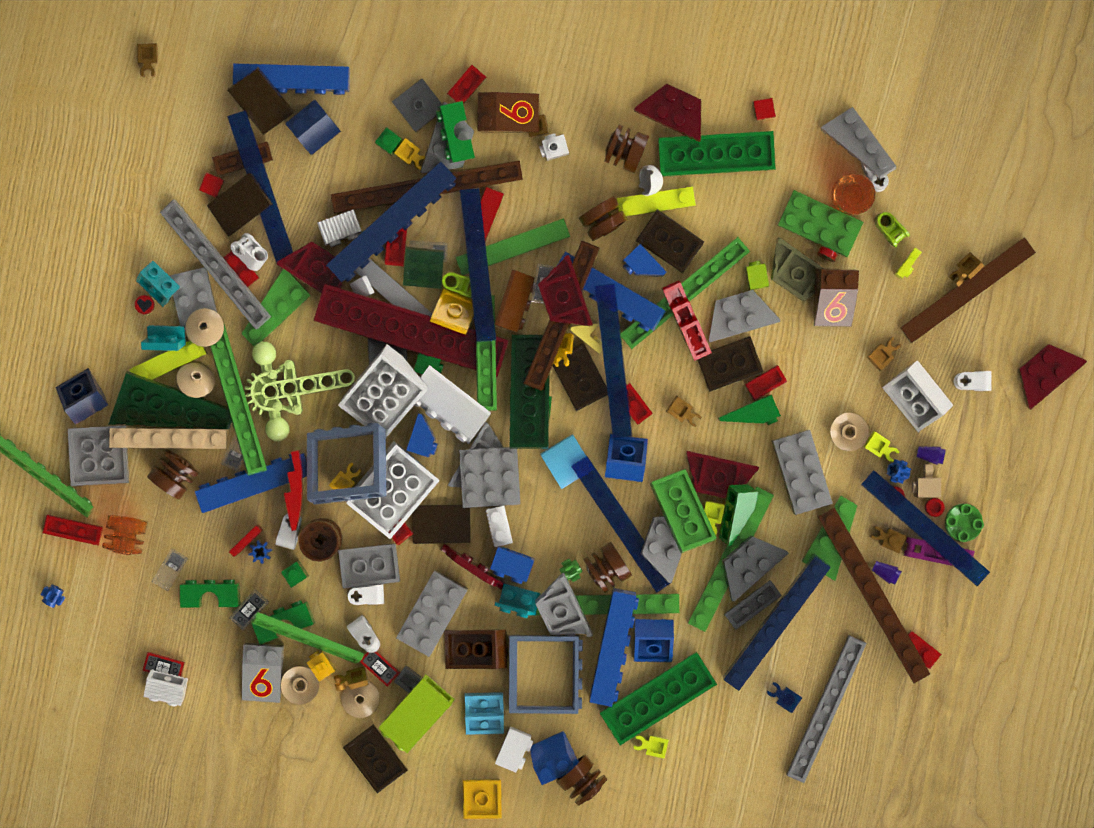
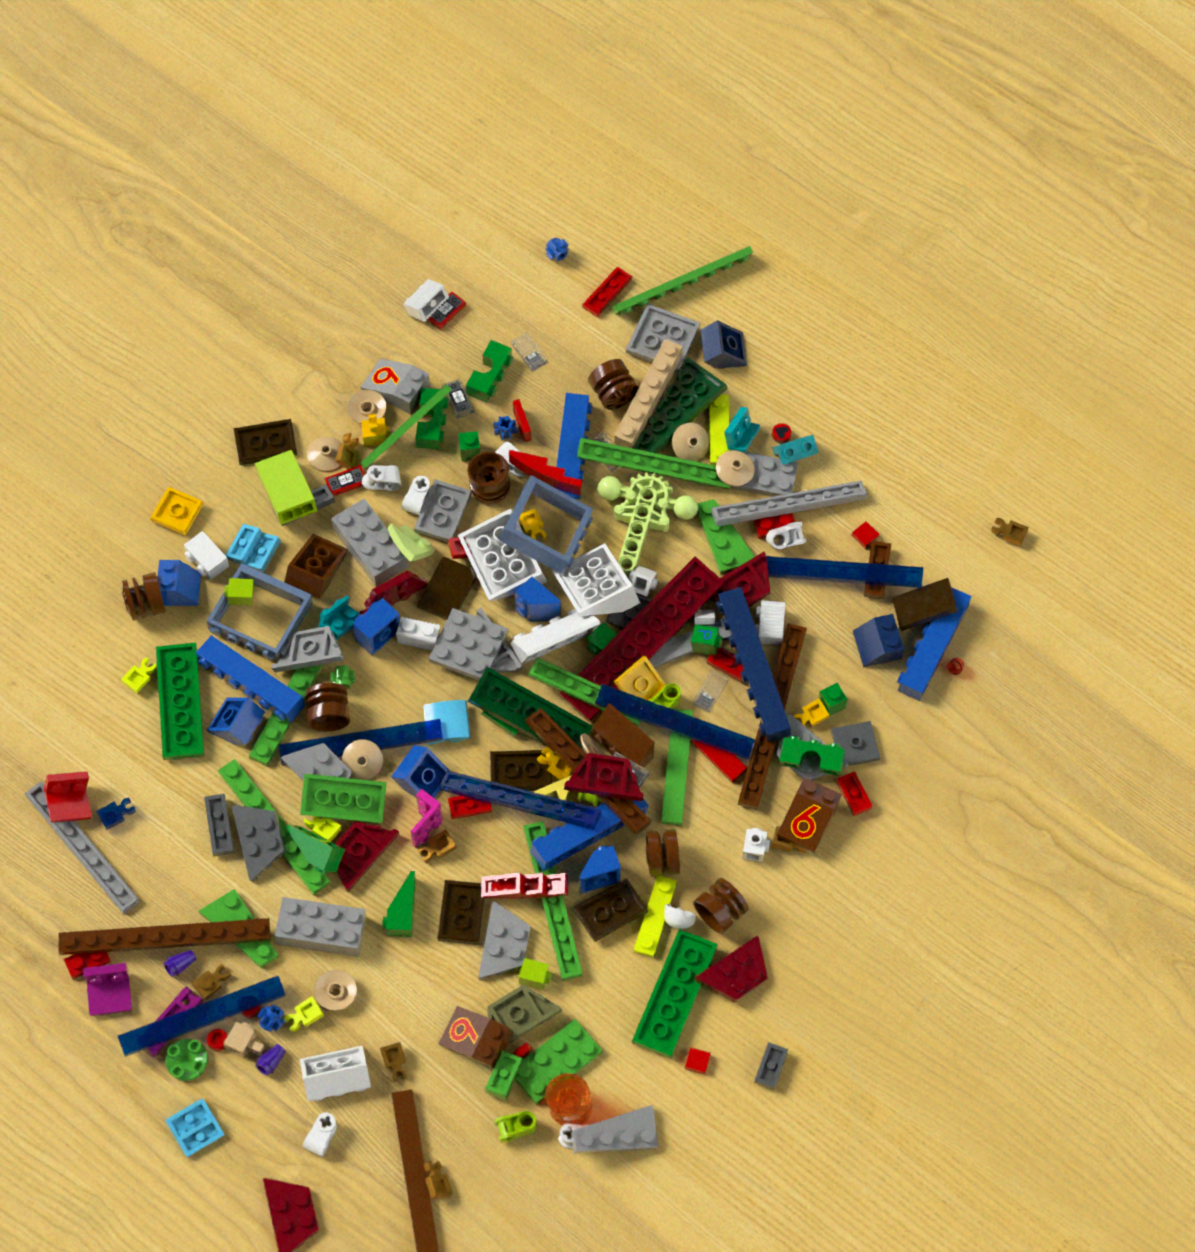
camera: 115 degrees right, 25 degrees down
(124, 534) = (580, 324): clear orange wheel -> none
(239, 204) = (835, 546): dark brown tile -> none
(304, 50) = (952, 666): none -> clear red hinge
(355, 356) = (643, 580): none -> white brick
(387, 274) = (706, 640): none -> green brick
(417, 576) = (410, 543): none -> yellowish green plate
(423, 267) = (697, 676): clear green plate -> none
(536, 322) = (590, 745): none -> tan dish
(540, 698) = (239, 591): none -> lime brick
(630, 514) = (370, 752): none -> tan dish
(657, 435) = (432, 817): none -> dark pink bracket
(741, 46) = (771, 1066): none -> dark grey plate
(765, 382) = (425, 937): red tile -> none
(776, 622) = (190, 835): dark blue brick -> none
(794, 742) = (67, 796): none -> red bracket
(857, 257) = (503, 1076): none -> bright green plate
(906, 267) = (468, 1121): neon yellow plate -> none
(939, 616) = (108, 989): none -> magenta bracket
(1015, 486) = (194, 1127): none -> medium azure slope

